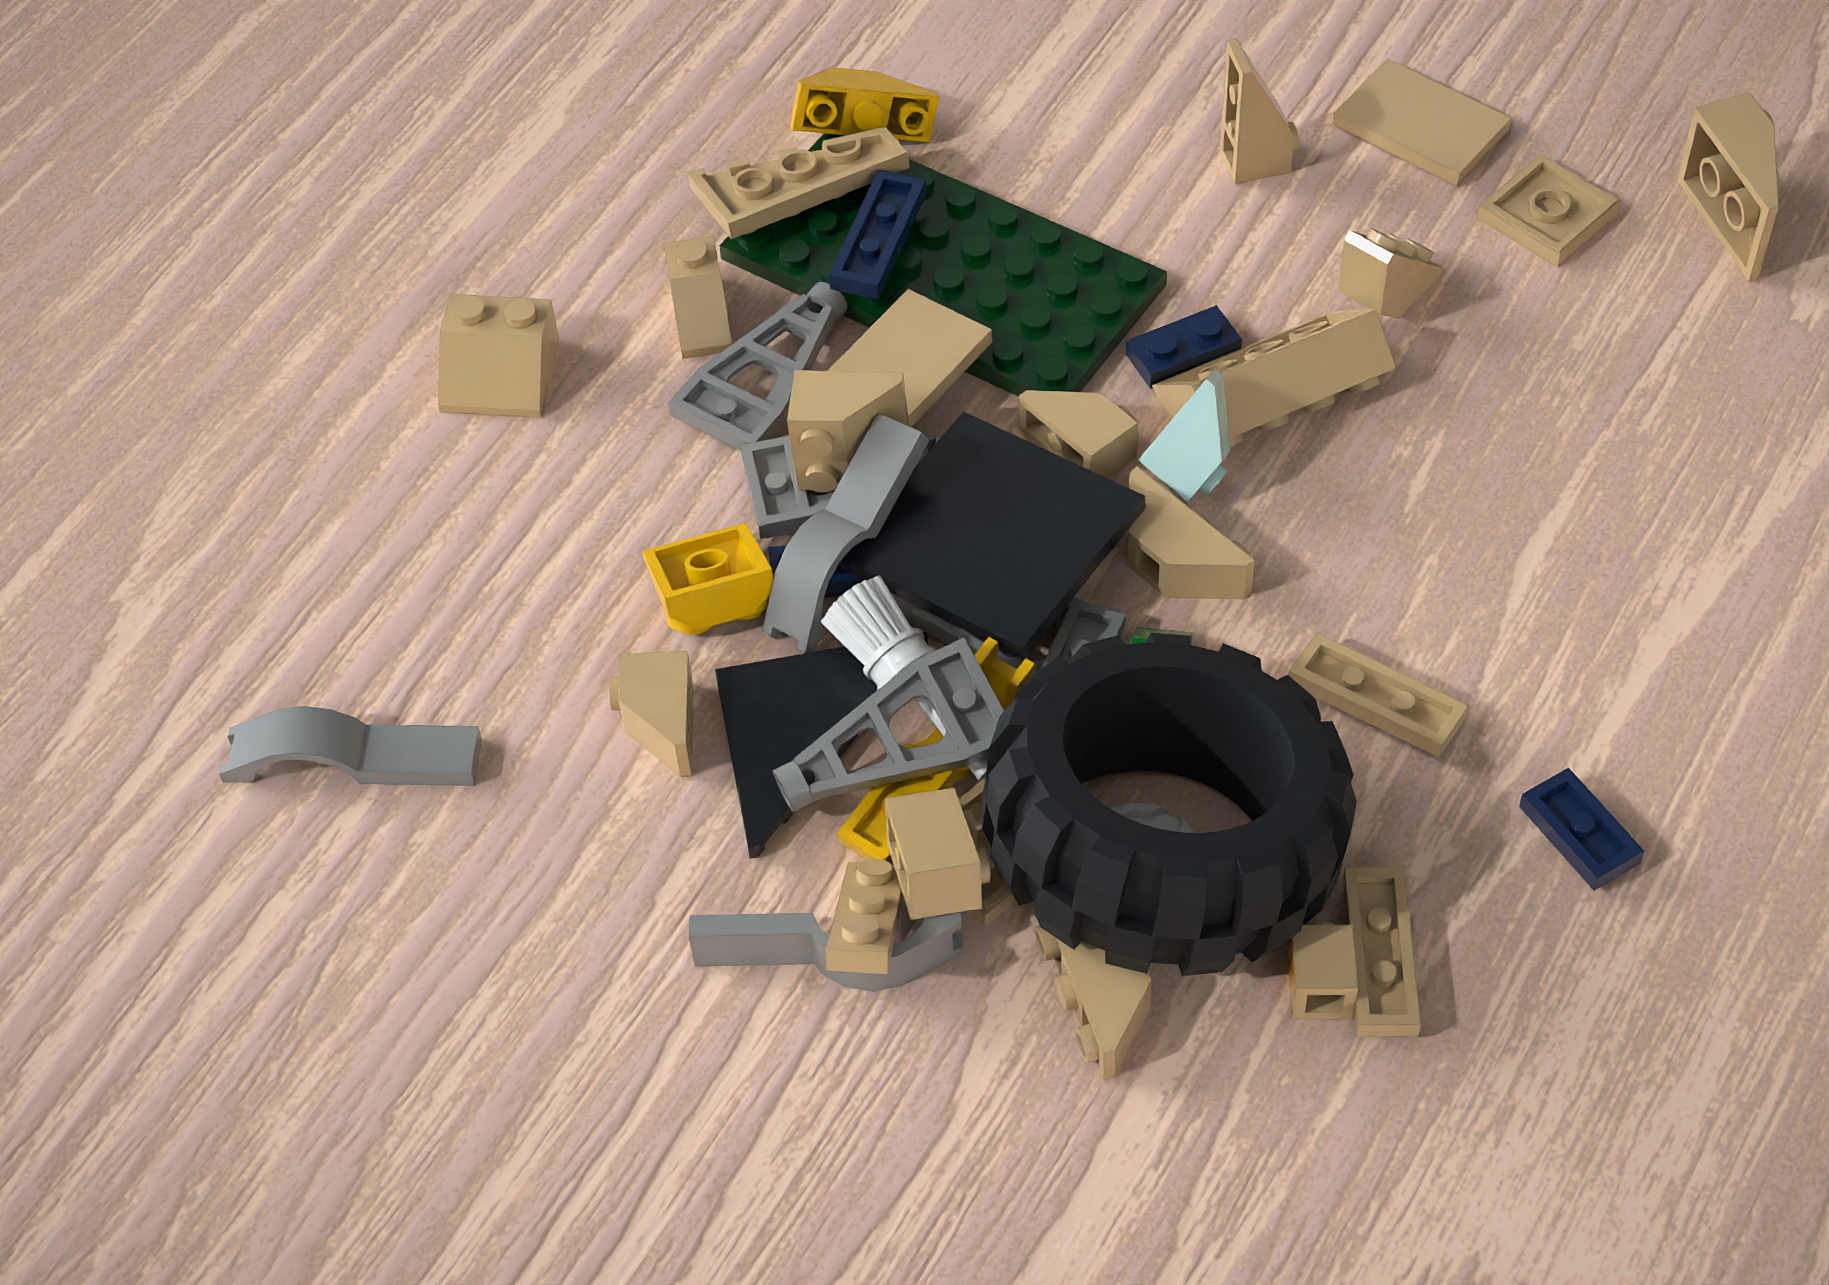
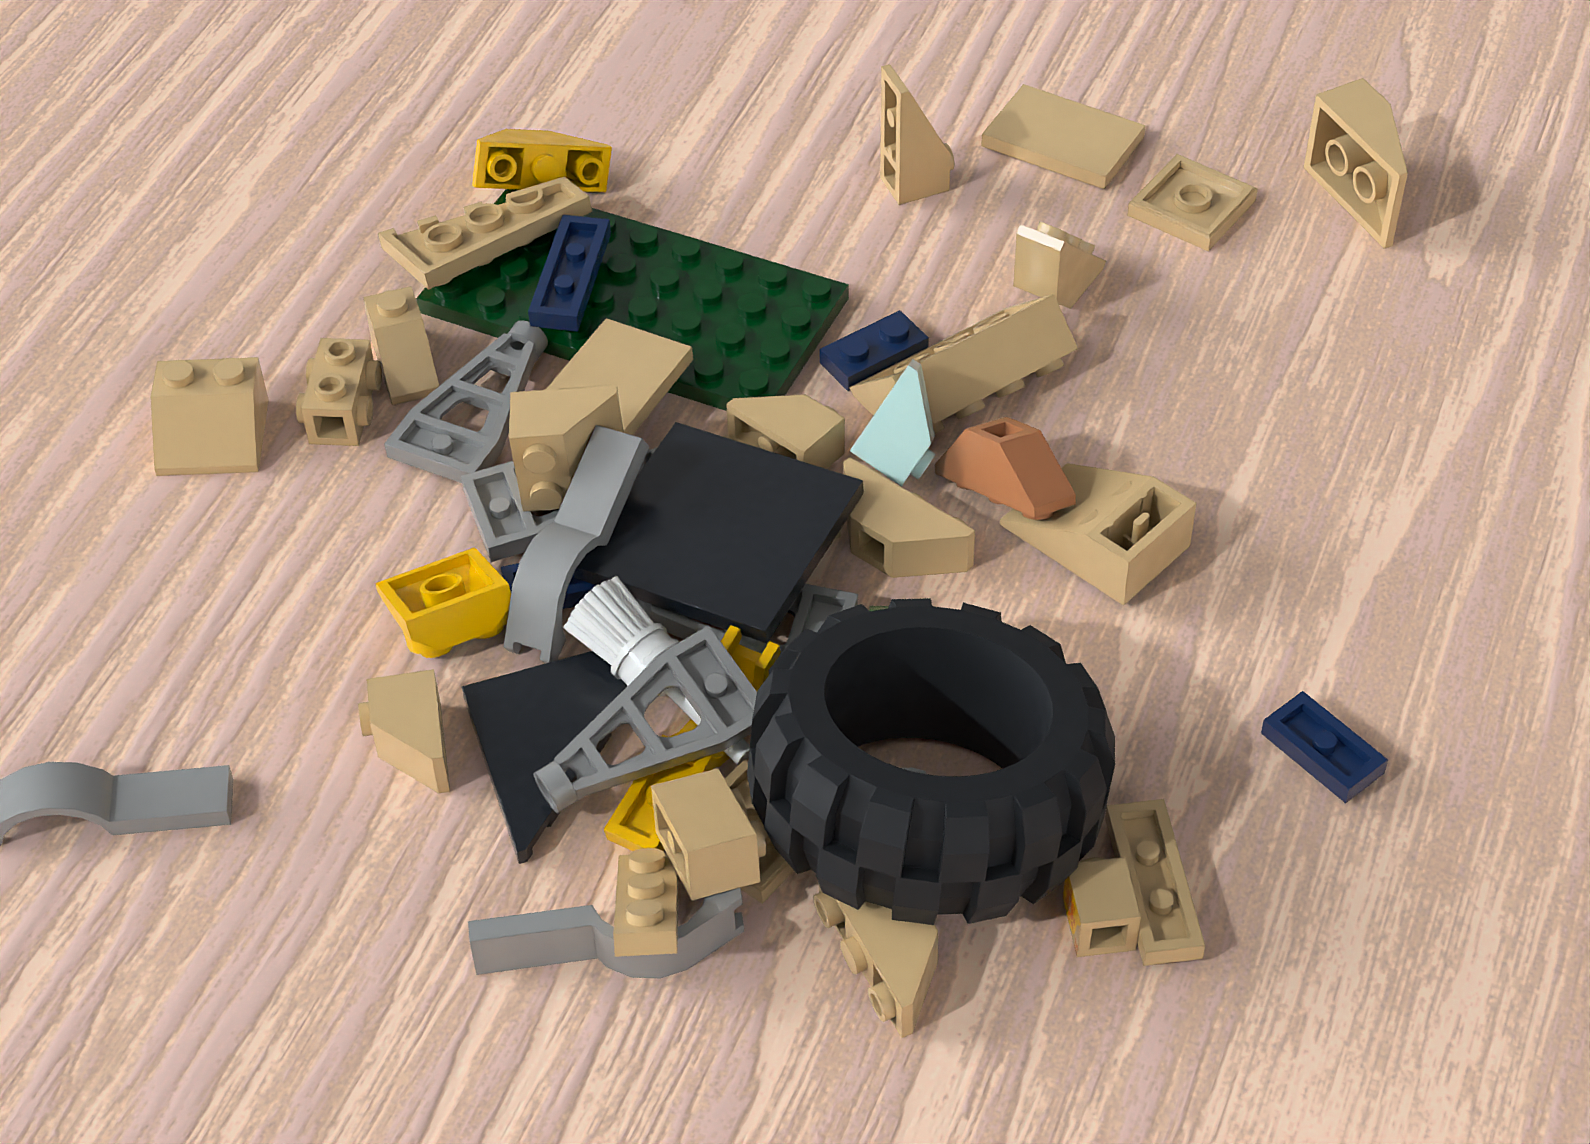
camera: 10 degrees left, 5 degrees down
(629, 341) = (339, 392): none -> tan brick
(1301, 495) = (1009, 467): none -> nougat slope
(1378, 694) = (1115, 644): tan plate -> none
(1393, 567) = (1116, 532): none -> tan slope

